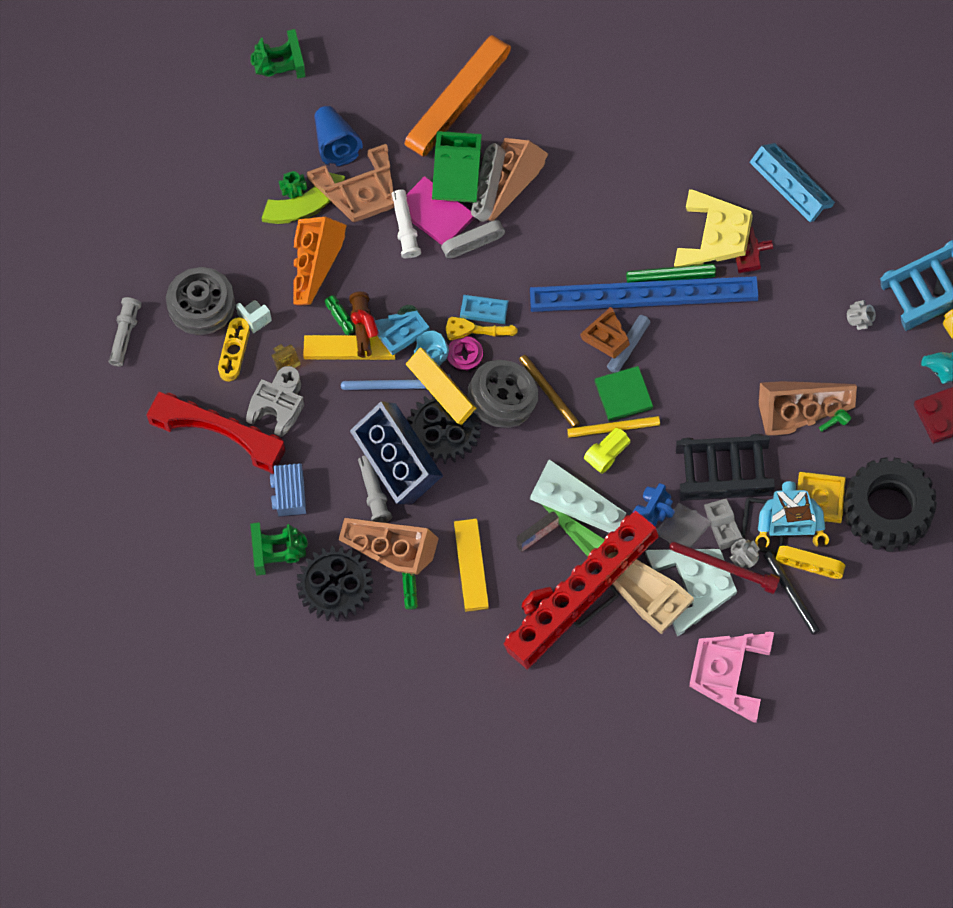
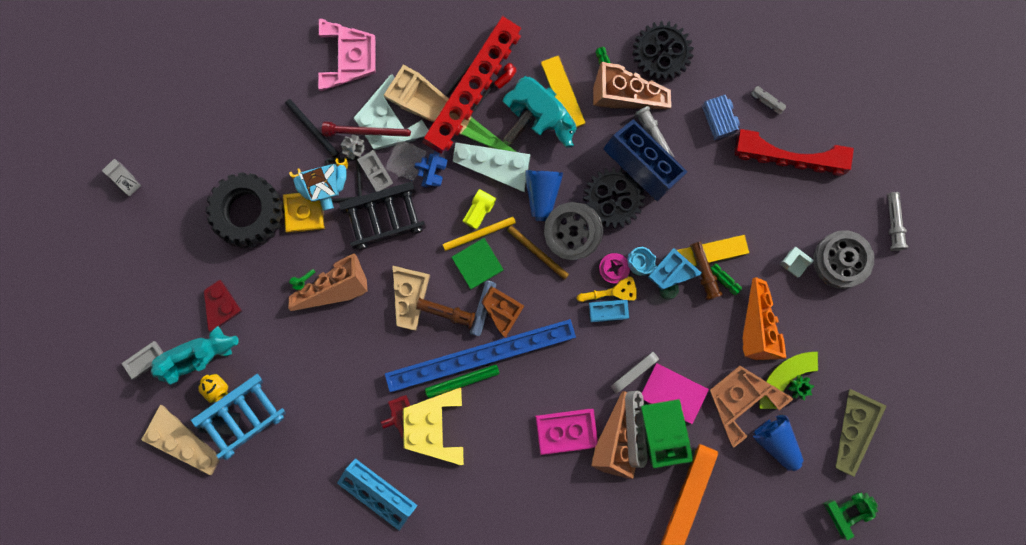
camera: 165 degrees right, 15 degrees up
(224, 500) = (768, 100): none -> light grey axle
(236, 359) = (796, 215): yellow beam -> none
(242, 135) = (858, 428): none -> olive wing
(263, 547) = (725, 65): green tile -> none
(278, 400) = (752, 190): light grey piece -> none
(285, 357) = (758, 227): clear yellow tile -> none
(367, 320) = (700, 267): red arm -> none
(383, 384) = (625, 237): medium blue piece -> none
(406, 233) = (691, 363): white pin -> none
(441, 386) = (625, 225): yellow tile -> none
(499, 544) = (544, 107): none -> teal animal
(525, 452) = (542, 192): none -> blue cone
(565, 200) = (566, 431): none -> dark pink tile
(664, 340) = (454, 318): none -> reddish brown pin
(711, 375) = (408, 288): none -> tan wing
(810, 562) = (300, 153): yellow beam -> none
(861, 315) = (296, 376): light grey gear -> none

